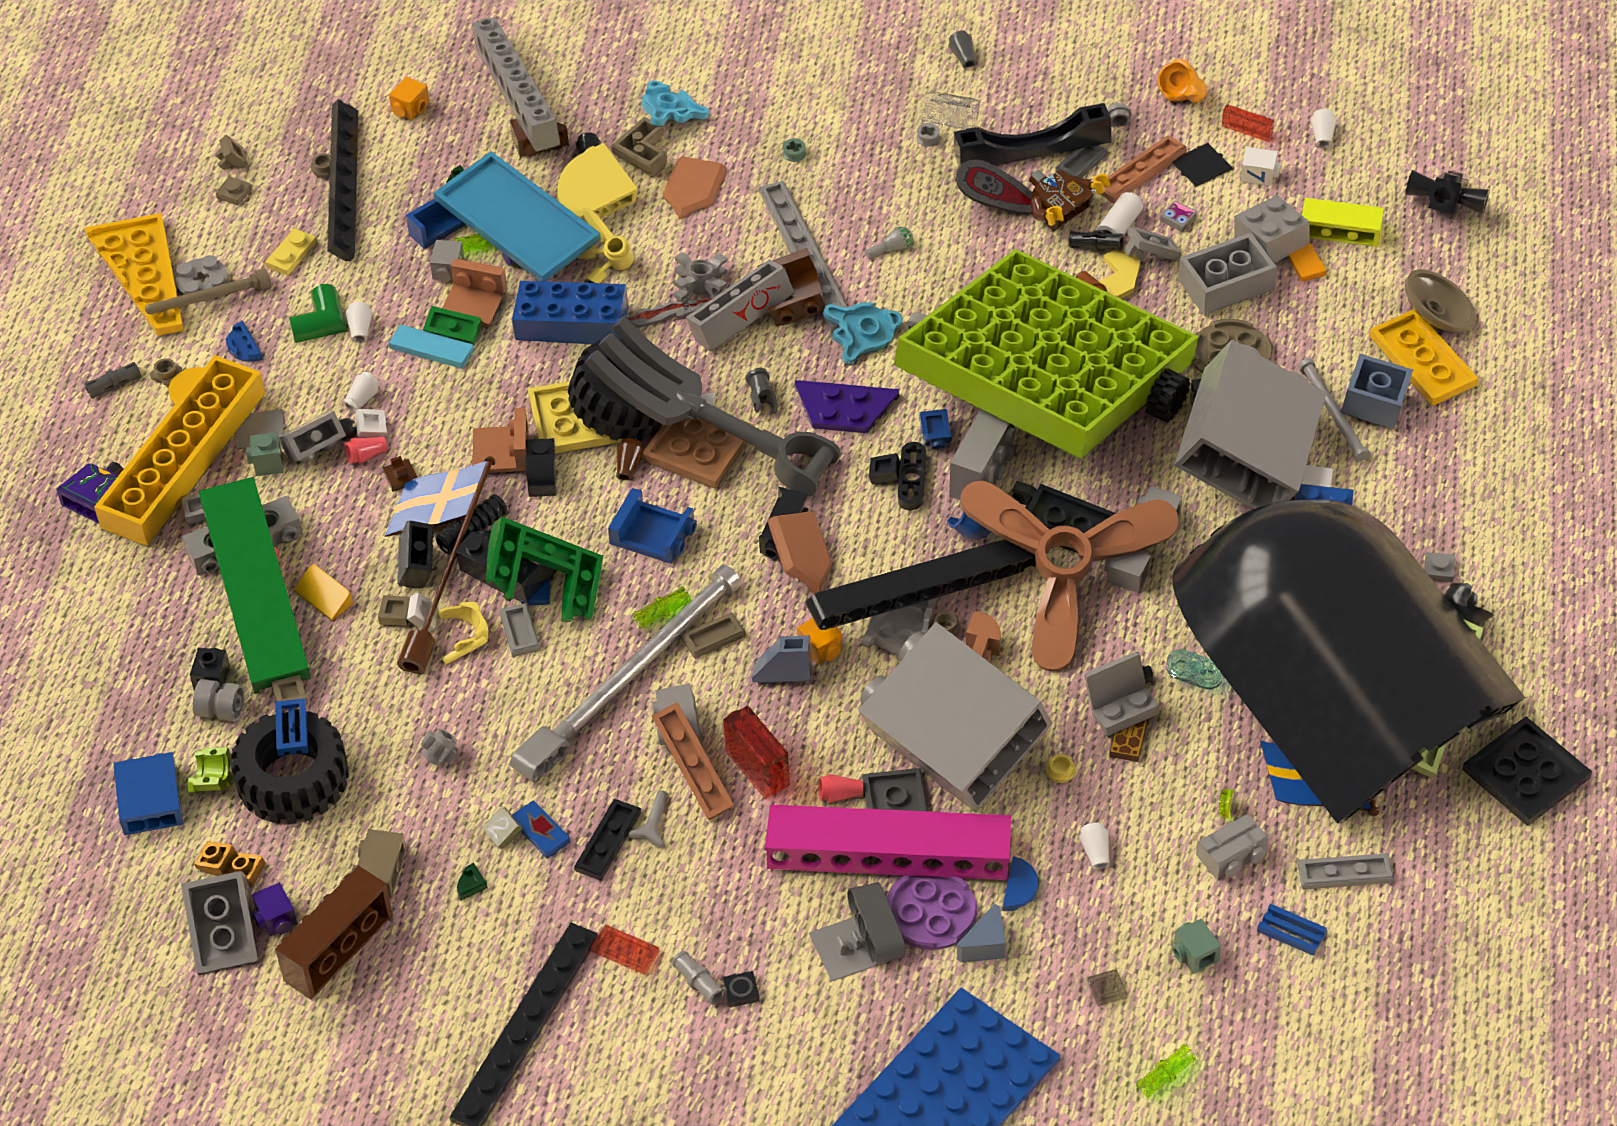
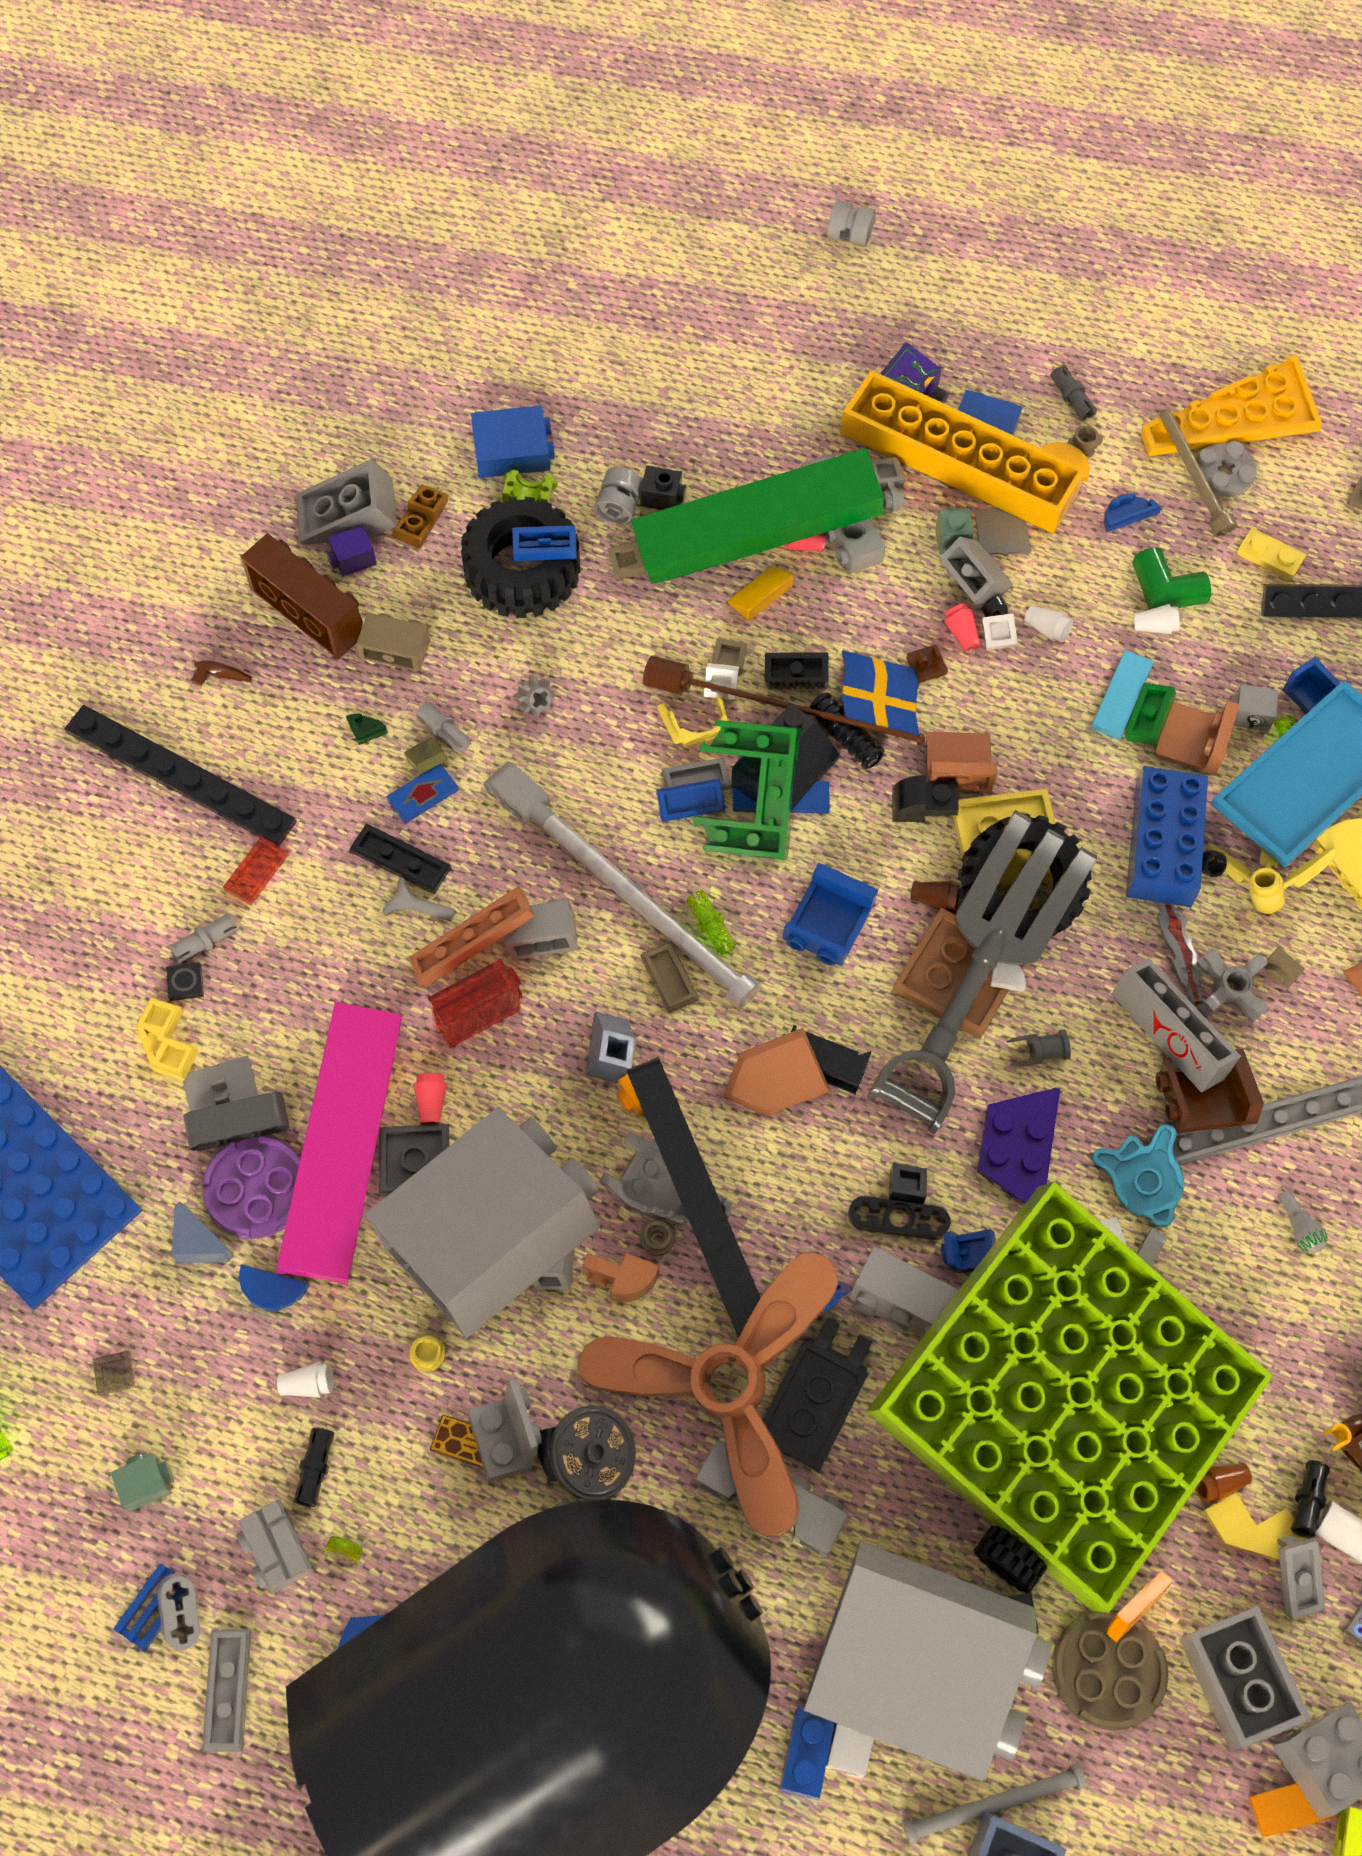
camera: 90 degrees right, 15 degrees up
(137, 431) = (992, 411): none -> blue brick
(408, 1007) = (217, 669): none -> reddish brown bar
(471, 817) = (443, 727): none -> light grey axle
(543, 628) = (690, 799): none -> blue tile
(684, 243) = (1283, 968): none -> dark tan plate
(790, 1005) = (164, 1053): none -> light yellow tile
(1121, 642) = (592, 1452): none -> dark grey shield
(1164, 832) = (313, 1467): none -> black pin
(1192, 324) = (1138, 1606): none -> light orange tile
(1293, 904) = (187, 1610): none -> light grey beam

